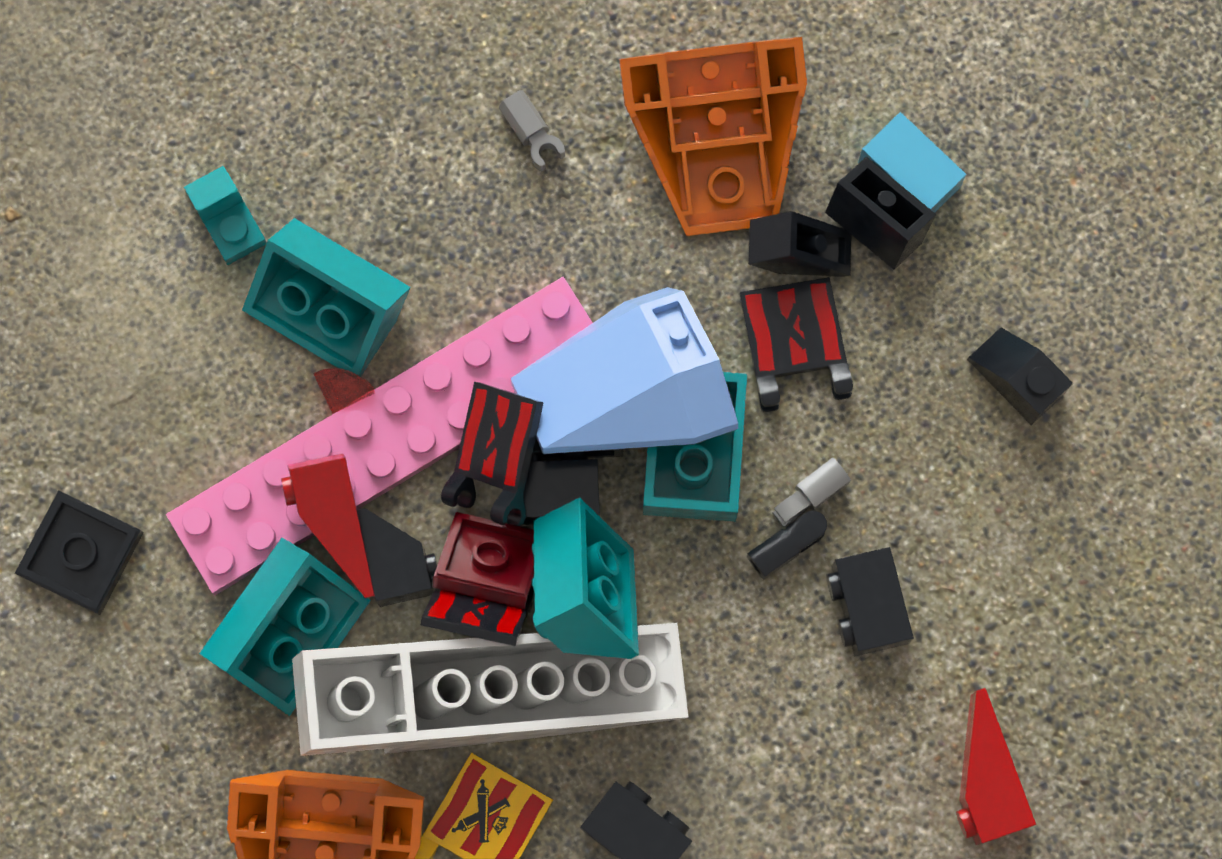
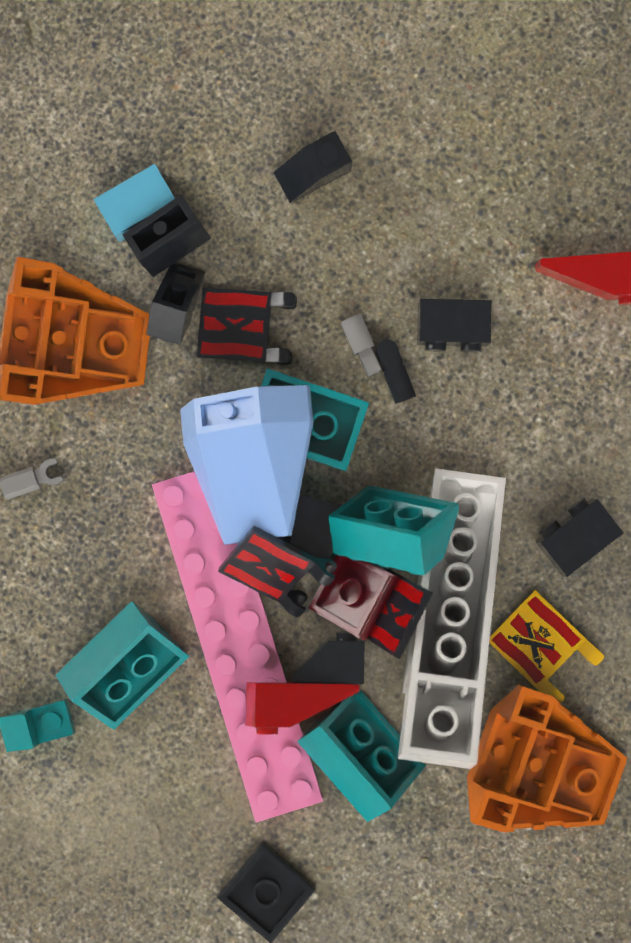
camera: 75 degrees left, 10 degrees up
(342, 387) = (194, 669): clear red tile -> none

